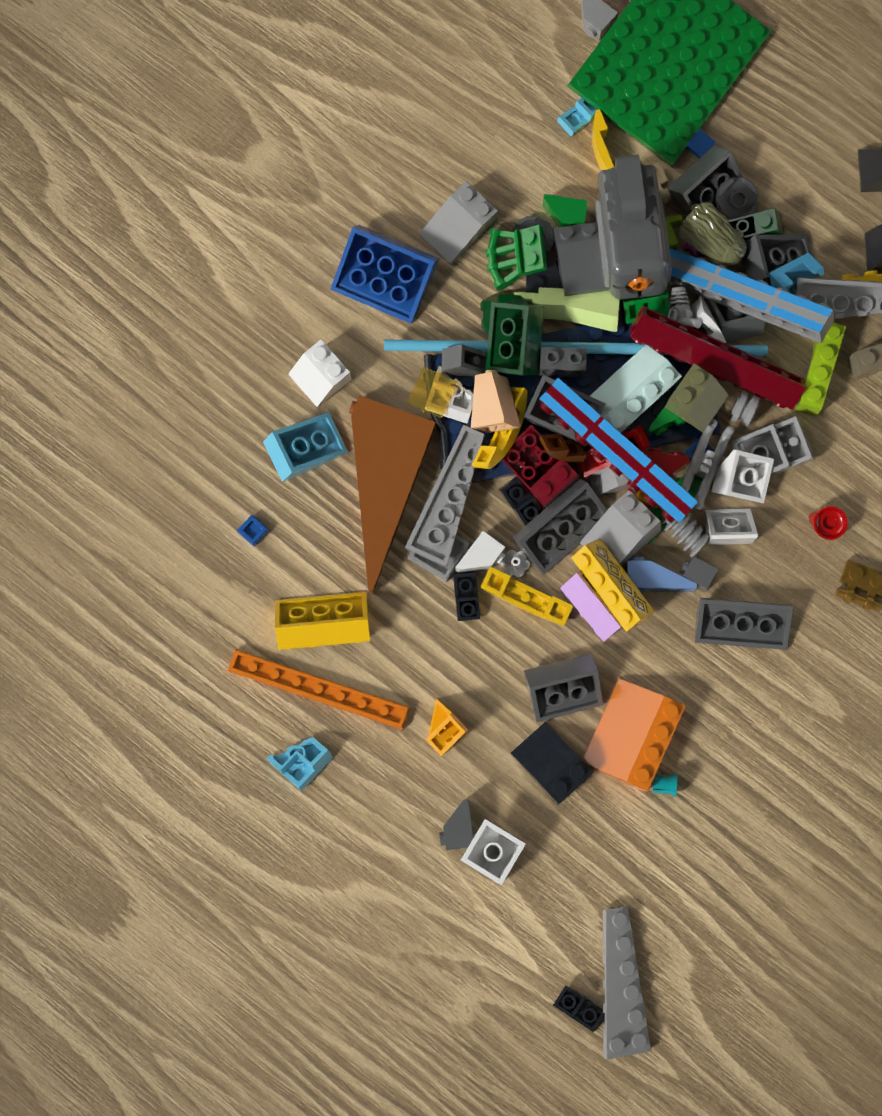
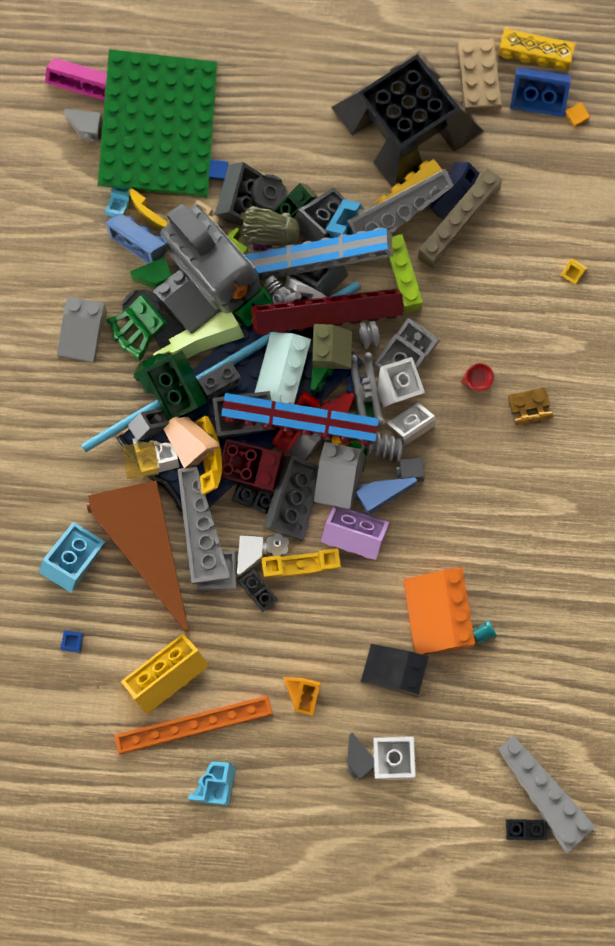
camera: 30 degrees left, 5 degrees down
(319, 373) = (49, 498): white slope -> none
(384, 273) = (50, 398): blue slope -> none
(562, 449) = (259, 442): reddish brown slope -> none
(563, 687) = (368, 610): dark grey slope -> none
(572, 163) = (136, 238): none -> medium blue slope
(613, 584) = (356, 515): yellow brick -> none
(743, 623) = (464, 485): dark grey slope -> none

